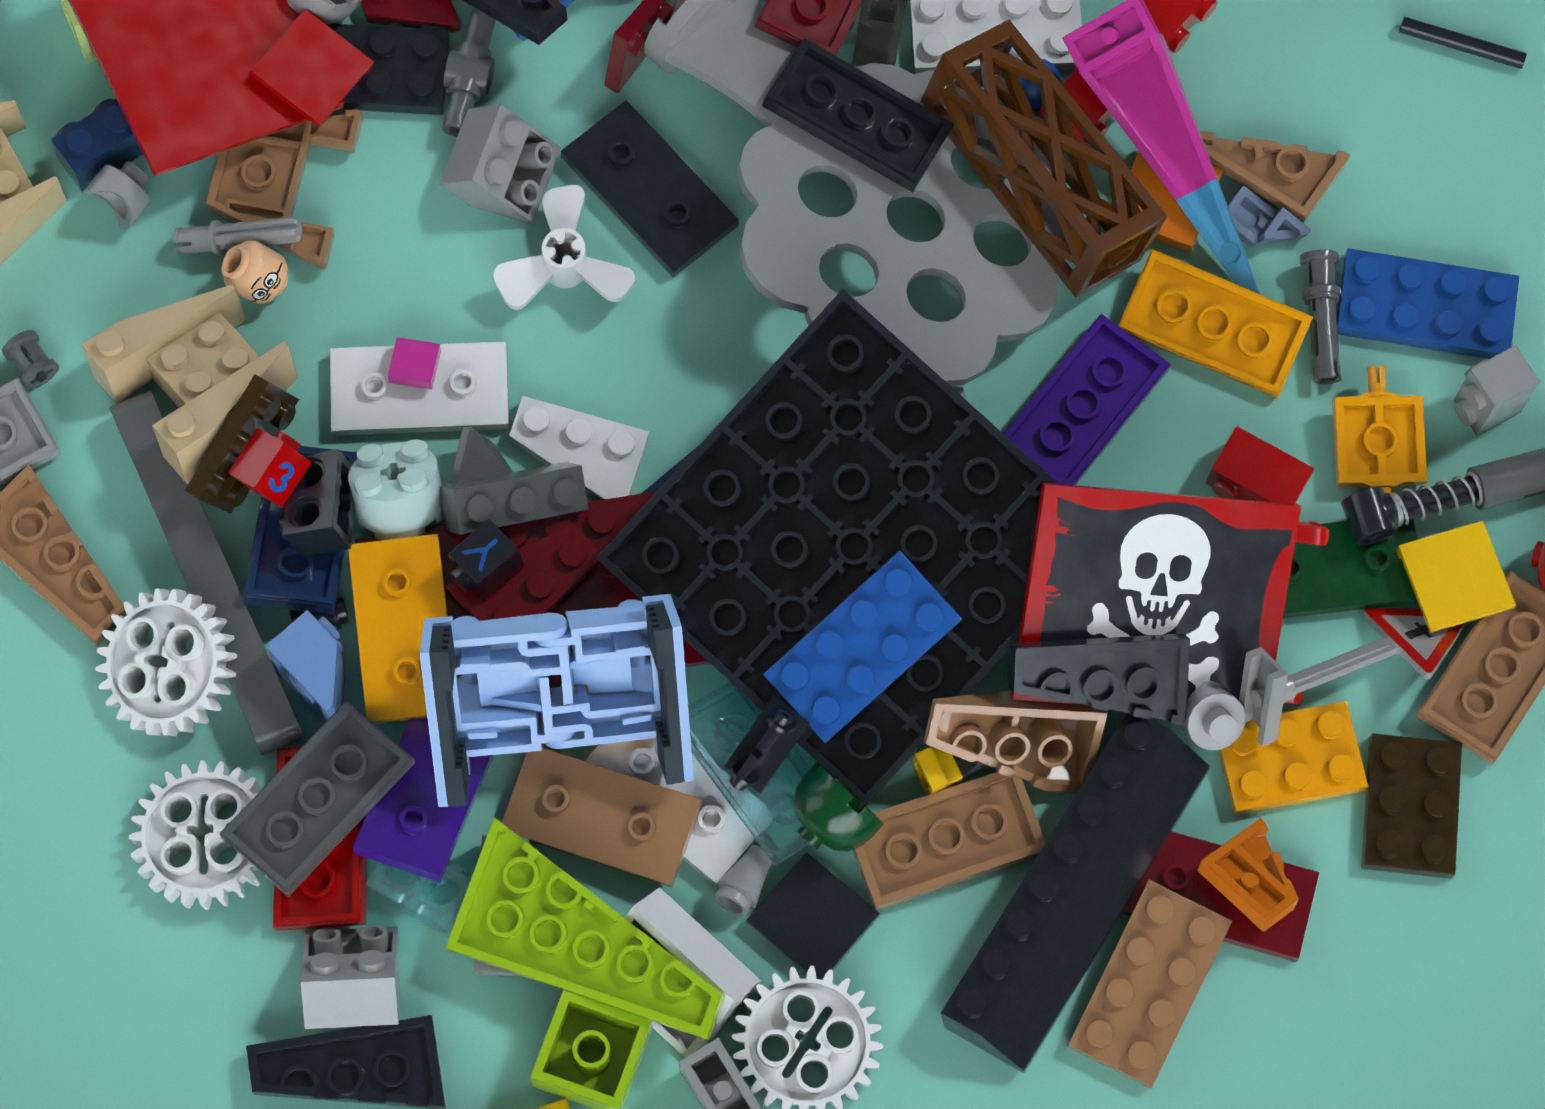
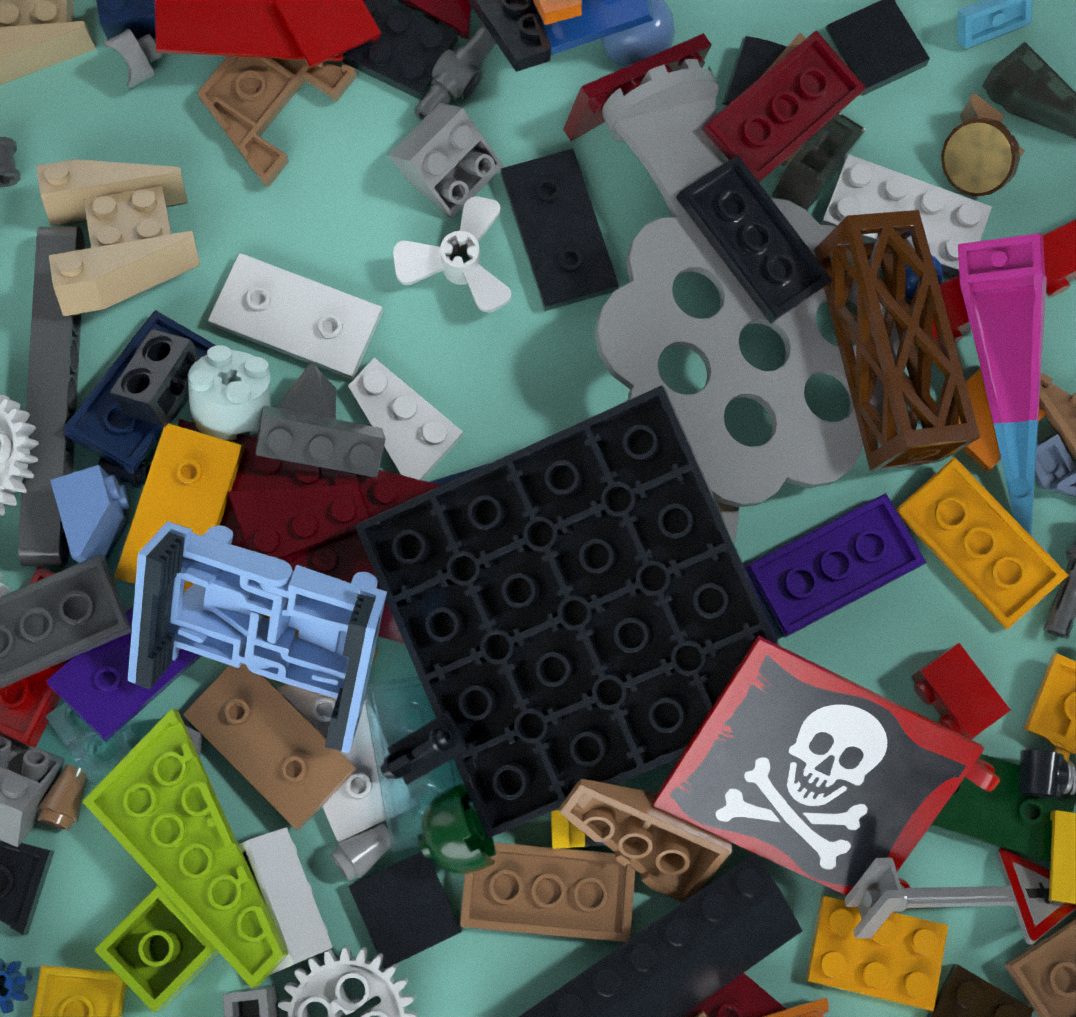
camera: 25 degrees right, 5 degrees up
(222, 237) = (195, 126): light grey axle -> none
(255, 271) = (206, 165): light nougat head -> none
(259, 407) = (121, 302): dark brown plate -> none
(270, 466) = (127, 330): red brick -> none
(414, 363) = (297, 293): dark pink tile -> none
(420, 964) = (64, 799): none -> medium nougat cone
(484, 561) = (264, 486): black brick -> none
(862, 646) = (543, 704): blue plate -> none
(1114, 673) = (759, 826): black wing -> none
(1213, 717) = (823, 892): light grey piece -> none

